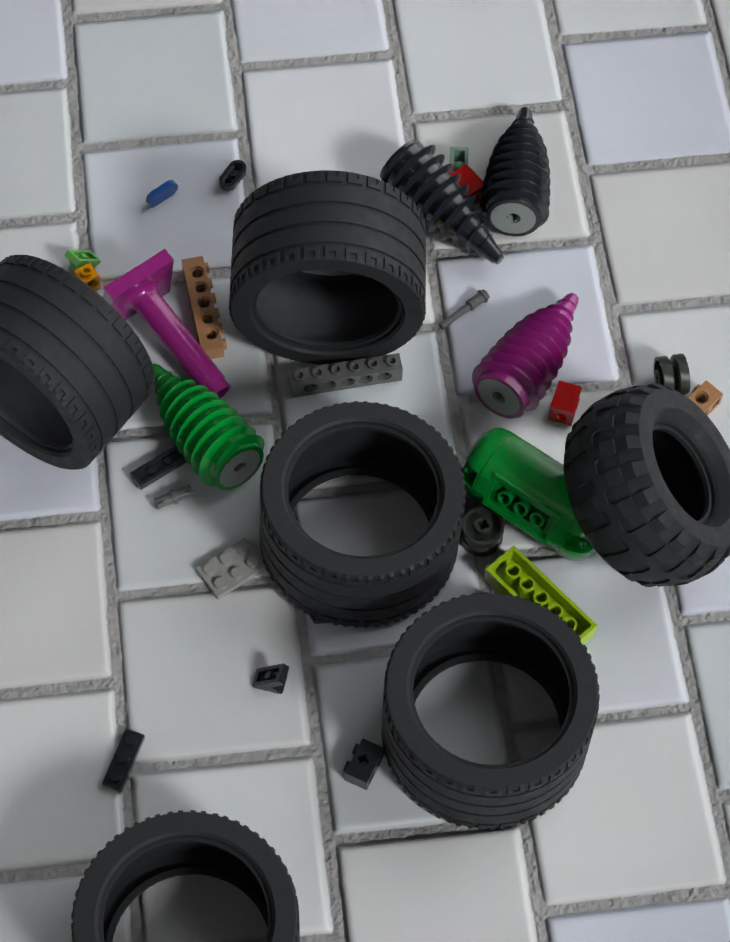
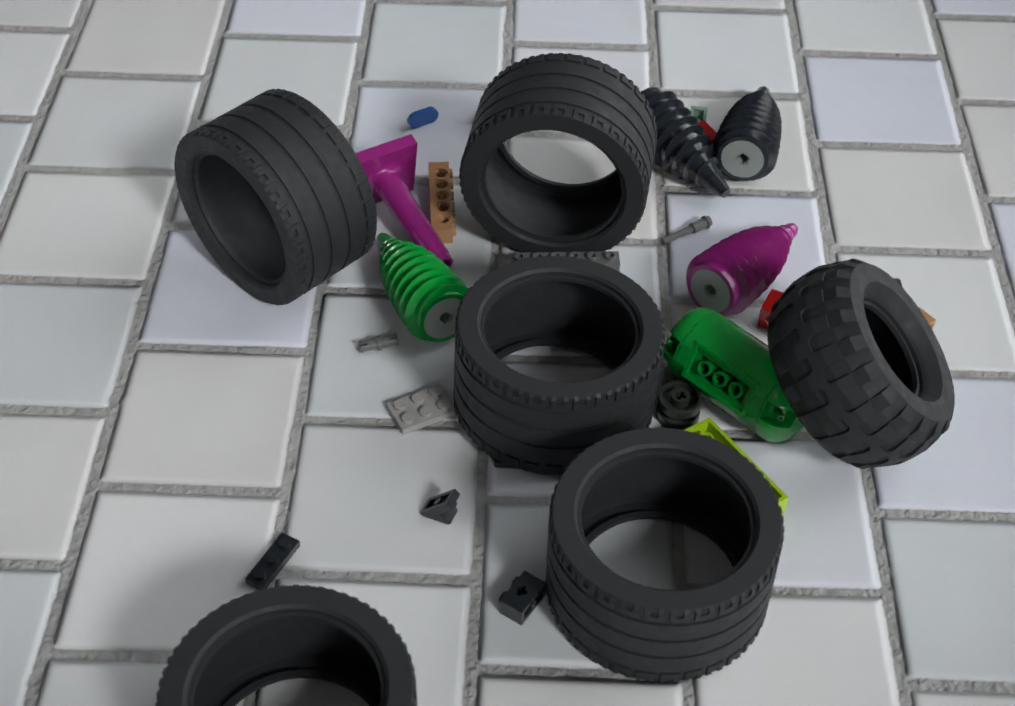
camera: 10 degrees right, 15 degrees down
(157, 467) = (369, 318): black plate -> none

